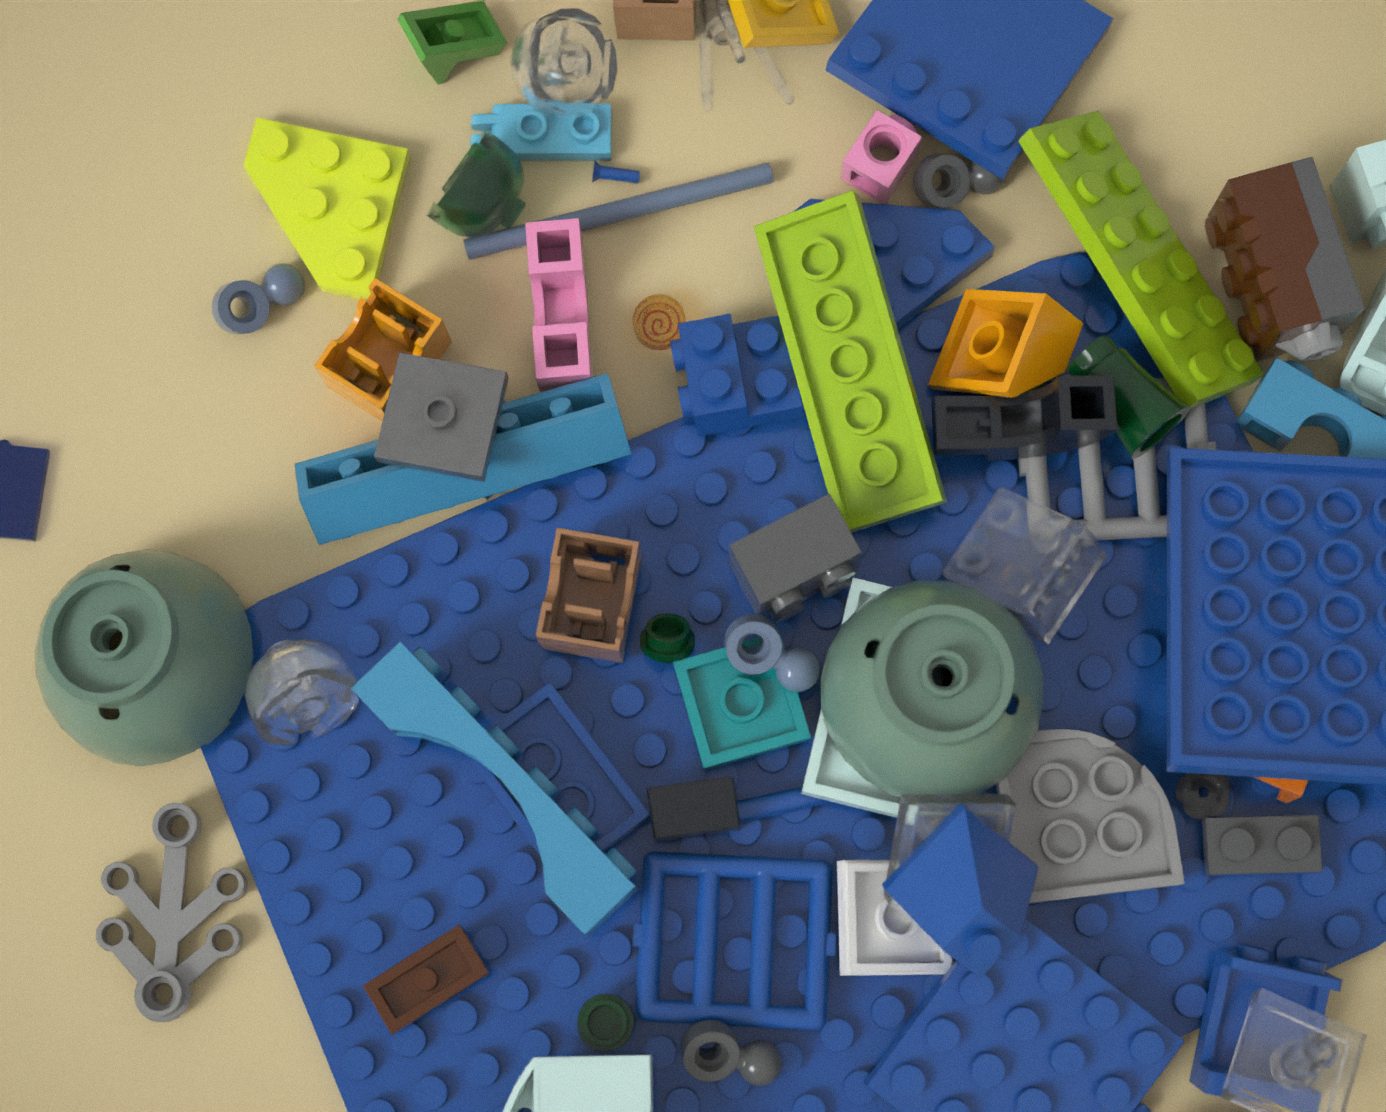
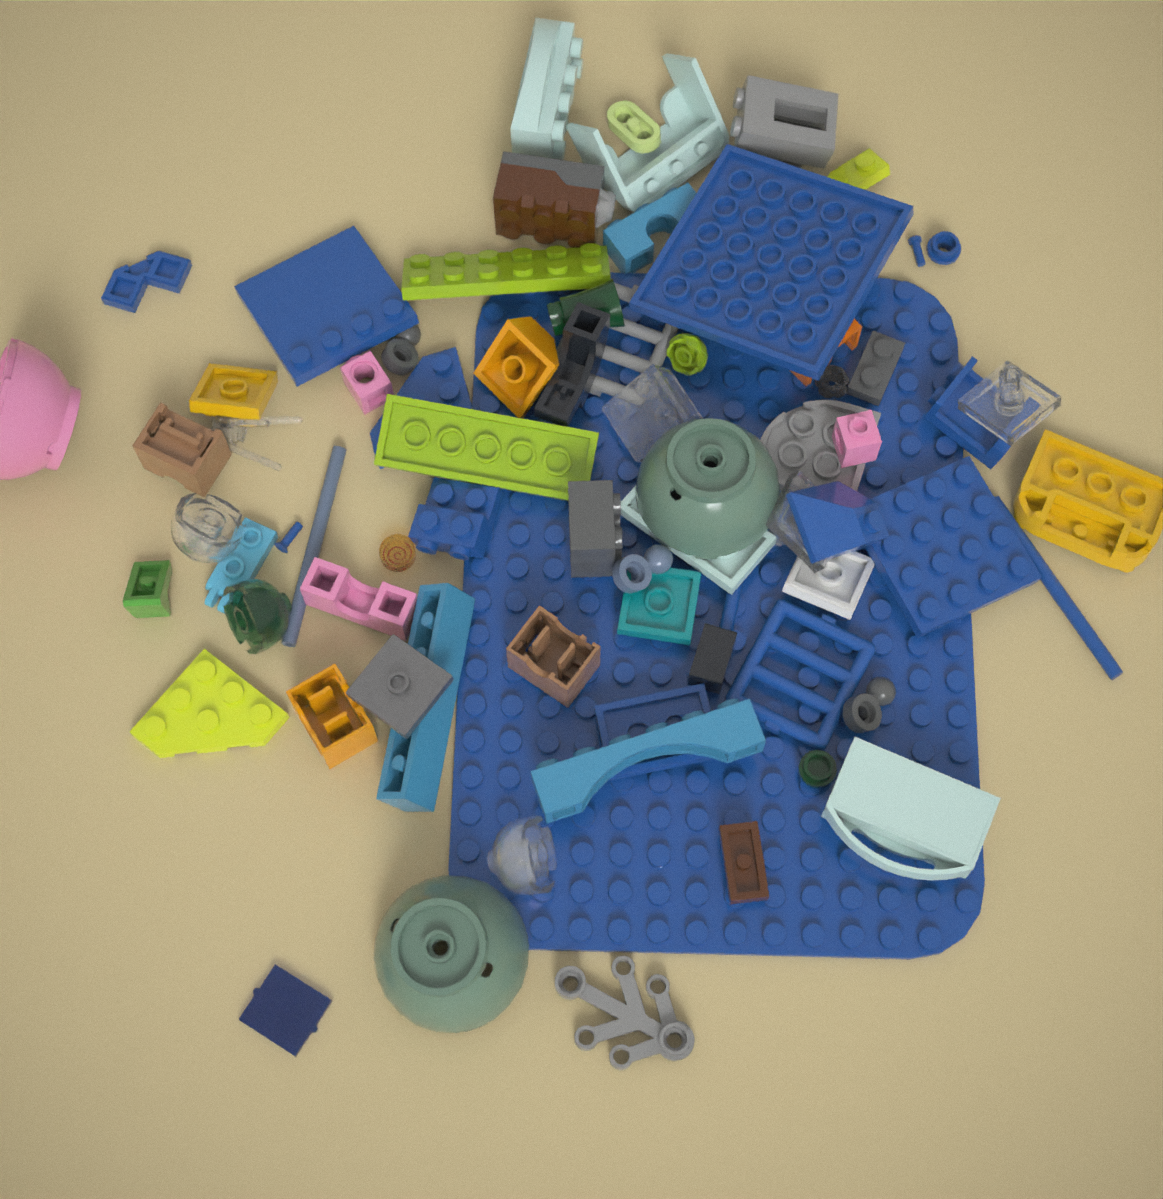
camera: 70 degrees left, 10 degrees down
(280, 285) = (249, 766): sand blue plate -> none
(667, 638) = (600, 627): dark green plate -> none
(1113, 865) = (856, 438): none -> bright pink brick
(1140, 567) = (687, 353): none -> lime plate

